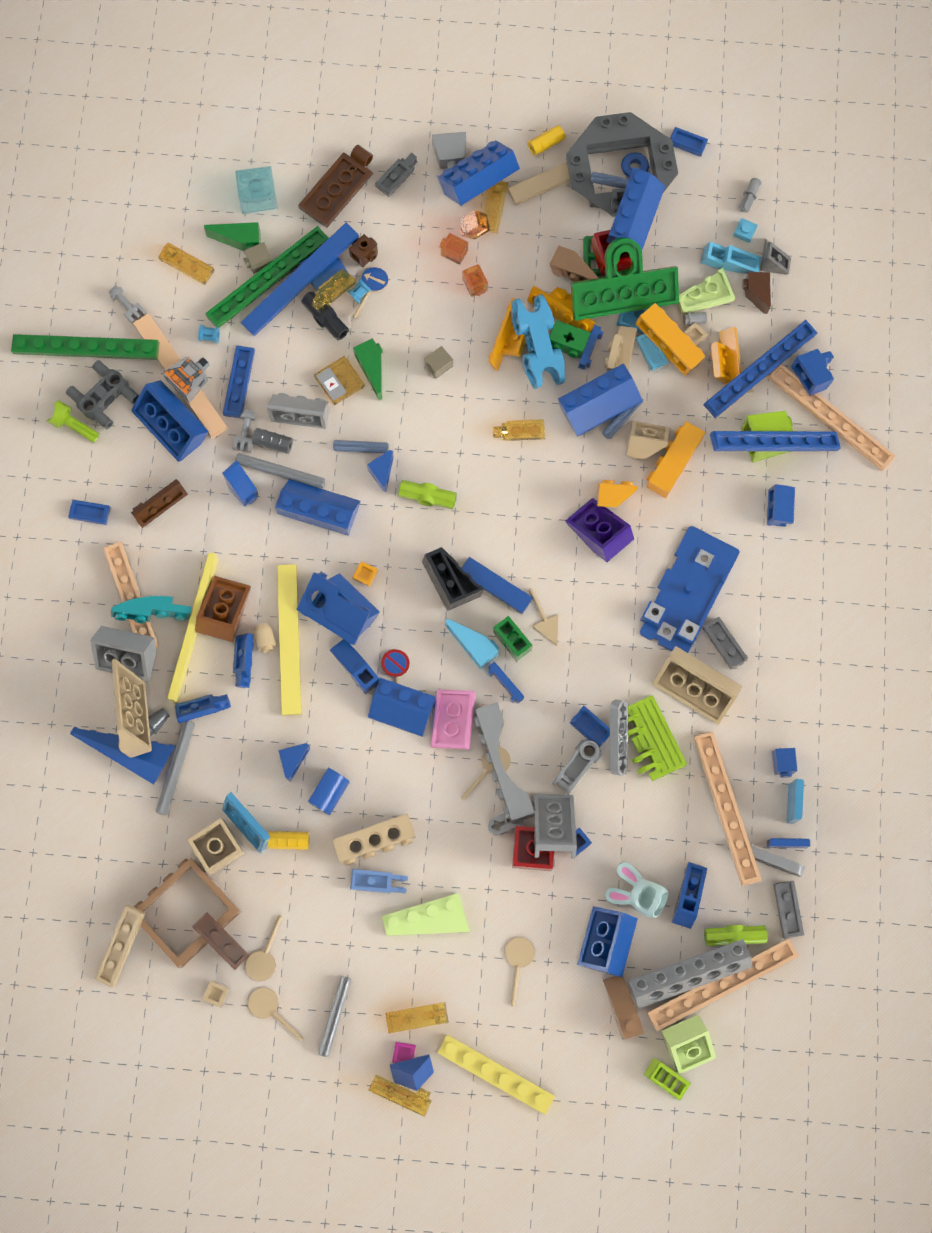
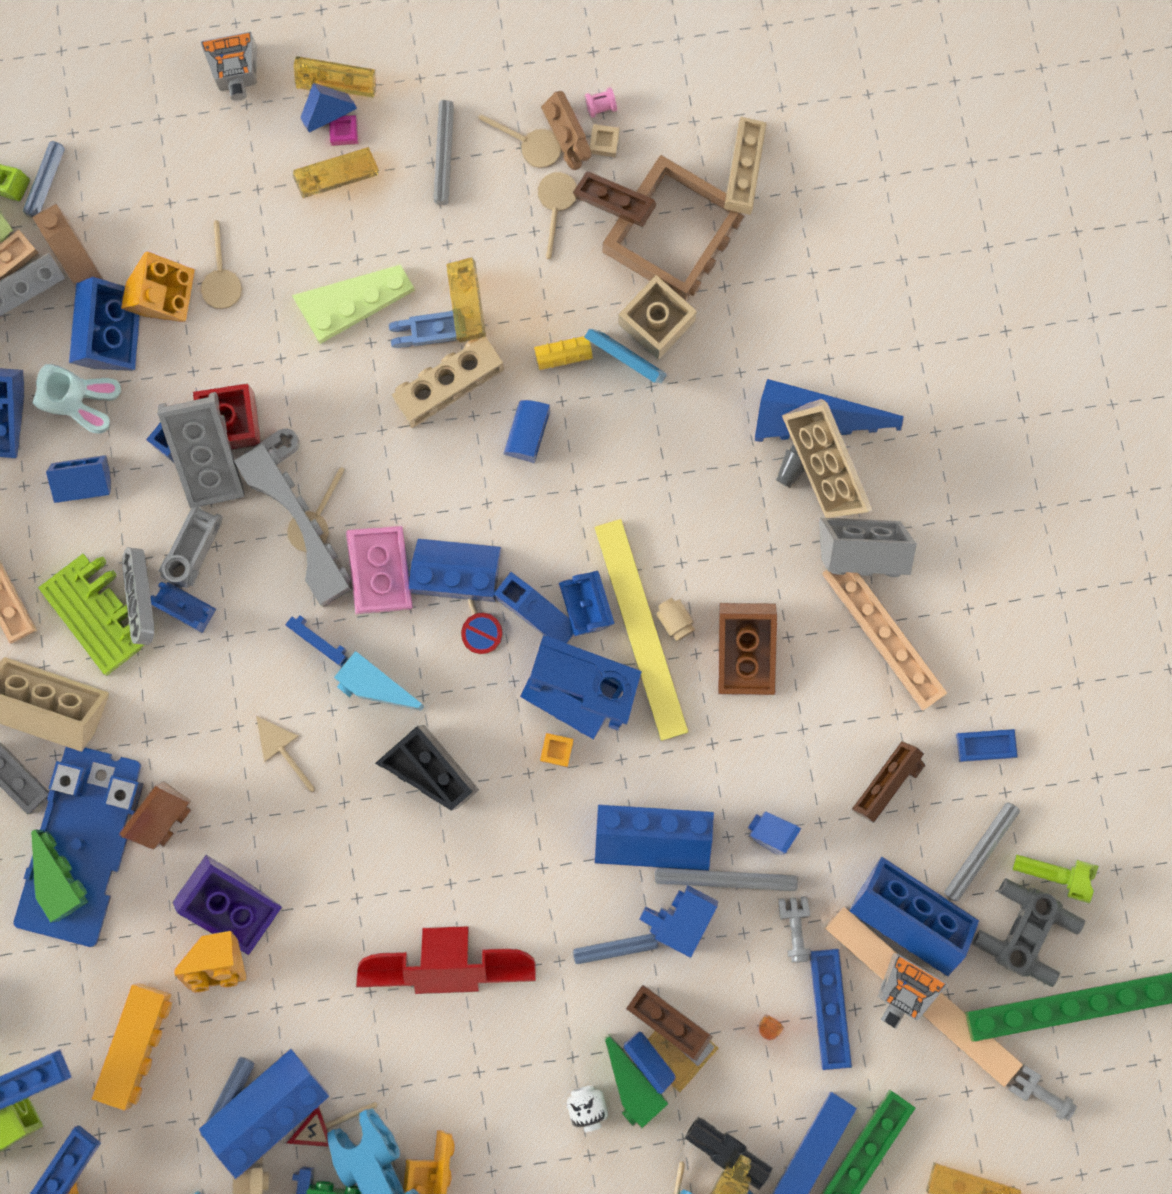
camera: 170 degrees right, 5 degrees up
(114, 449) = (982, 851): none -> light grey axle
(143, 607) = (858, 612): teal slope -> none
(175, 767) = (746, 414): light grey axle -> none
(190, 635) = (780, 568): light yellow tile -> none
(201, 707) = (736, 500): blue hinge -> none
(209, 334) = (899, 1075): dark azure bush -> none
(210, 1024) = (600, 102): none -> bright pink bush
(240, 1008) = (567, 130): none -> medium nougat hinge
(243, 659) = (697, 581): blue hinge -> none
(272, 440) = (750, 922): dark grey axle -> none
(278, 379) = (770, 1027): none -> clear orange hinge
(292, 759) = (589, 460): blue slope -> none
(298, 410) = (724, 981): light grey slope -> none
(312, 449) = (684, 925): none -> blue hinge
(319, 661) = (586, 603): none -> blue hinge
(339, 393) = (669, 1022): none -> reddish brown hinge
(346, 893) = (466, 300): none -> clear yellow hinge
(357, 374) = (649, 1062): none -> blue slope
(381, 469) = (574, 917): blue slope -> none
(403, 359) = (587, 1108): none -> white head
(427, 494) = (495, 895): lime piece -> none
(438, 362) = (531, 1116): dark tan brick -> none
(469, 461) = (445, 965): none -> red piece
(474, 1126) = (232, 62): none -> torso
(496, 1074) = (220, 133): light yellow plate -> none
(497, 586) = (363, 781): blue tile -> none
(512, 638) = (318, 703): green brick -> none
(520, 430) = (377, 1035): clear yellow hinge -> none
(563, 958) = (159, 289): none -> light orange slope
(570, 385) = (315, 1130): none -> piece
(632, 1070) = (43, 179): none -> sand blue axle
(634, 591) = (156, 816): none -> dark orange slope
(645, 834) = (79, 479): none -> blue brick
(646, 439) = (181, 1068): tan slope -> none
(706, 562) = (54, 884): none -> bright green slope

